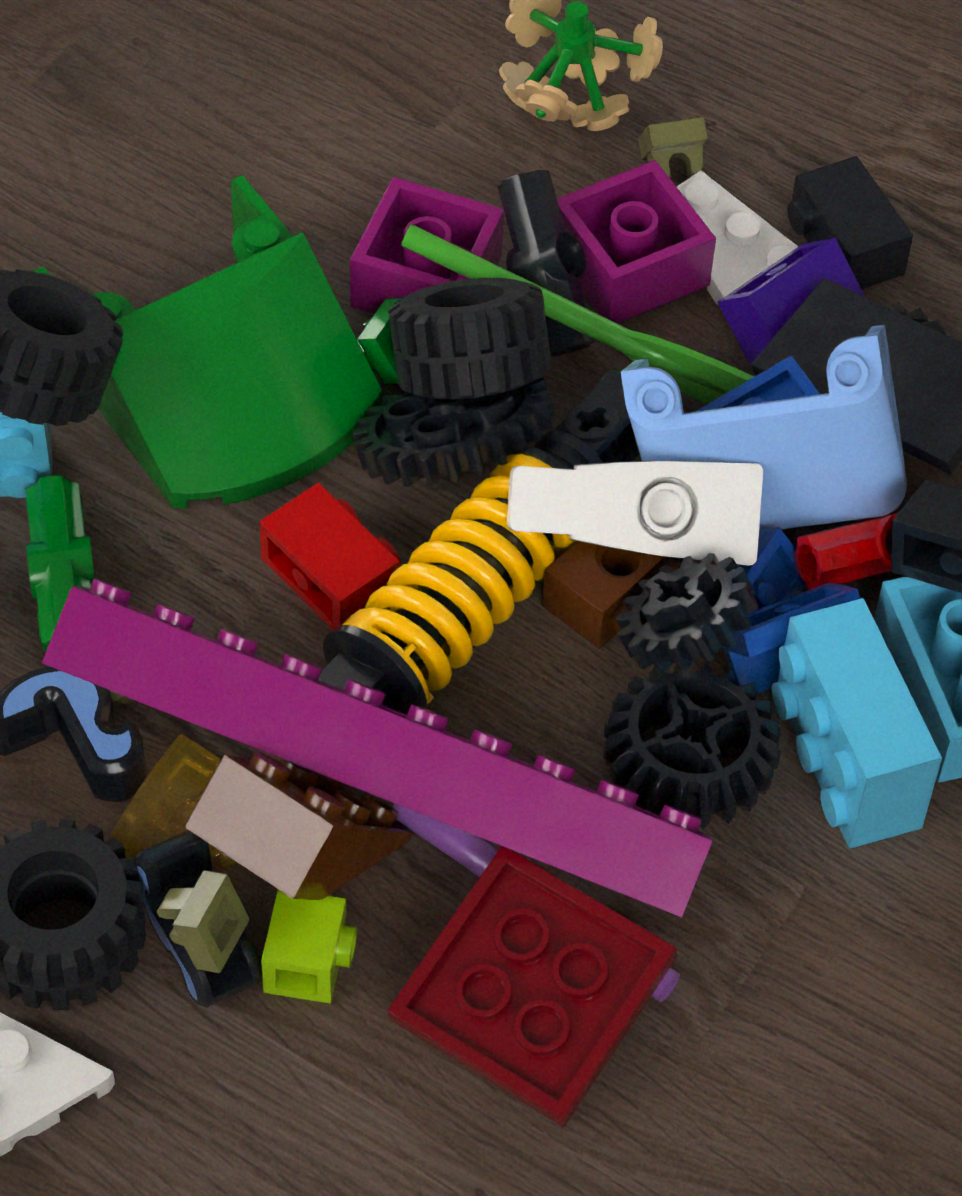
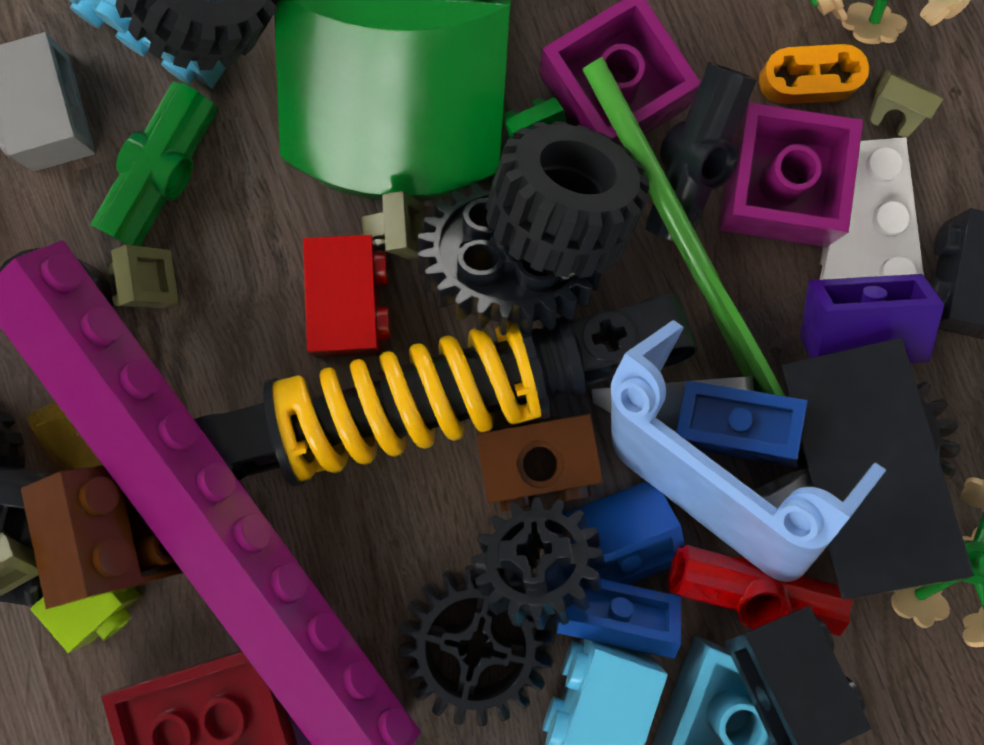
camera: 40 degrees right, 30 degrees up
(333, 473) = (397, 225): none -> olive tile
(578, 163) = (813, 64): none -> light orange beam
(645, 506) = (574, 454): white piece -> none

